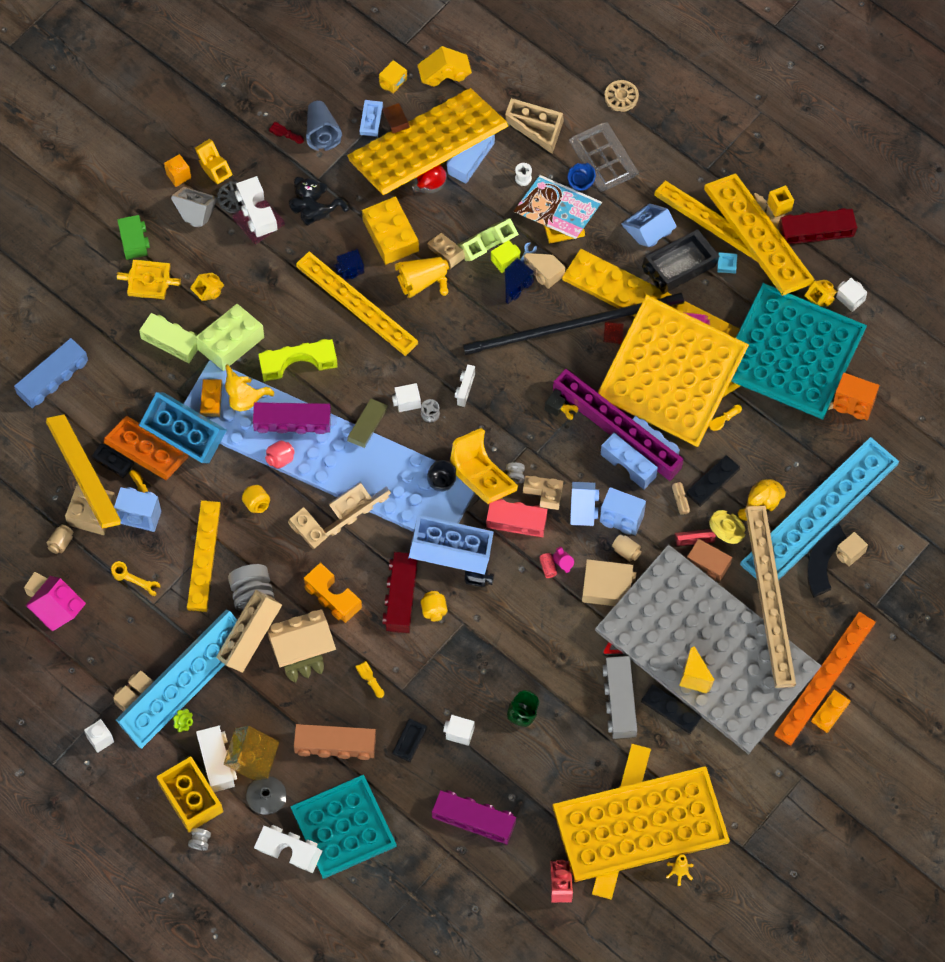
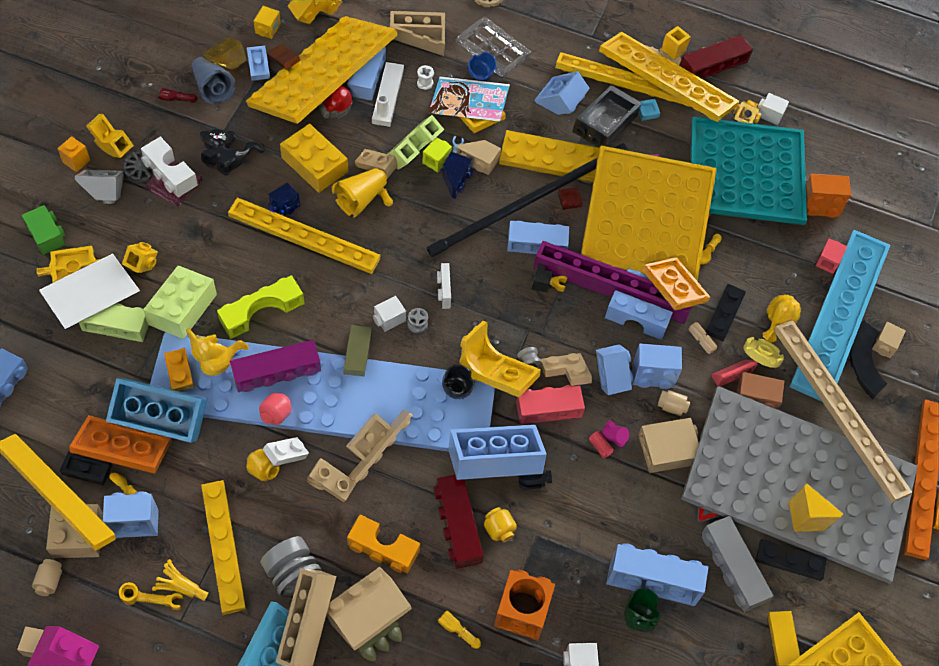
camera: 25 degrees left, 5 degrees down
(156, 305) = (89, 290): none -> white sticker
(160, 574) = (179, 583): none -> yellow piece
(277, 493) = (285, 451): none -> white plate
(342, 103) = (227, 53): none -> clear yellow slope
(426, 690) = (516, 622): none -> orange brick
(482, 181) = (387, 94): none -> white piece
(549, 685) = (662, 574): none -> light blue brick
(556, 359) = (527, 237): none -> light blue brick
(669, 442) = (676, 283): none -> light orange tile
(836, 455) = (831, 256): none -> coral brick

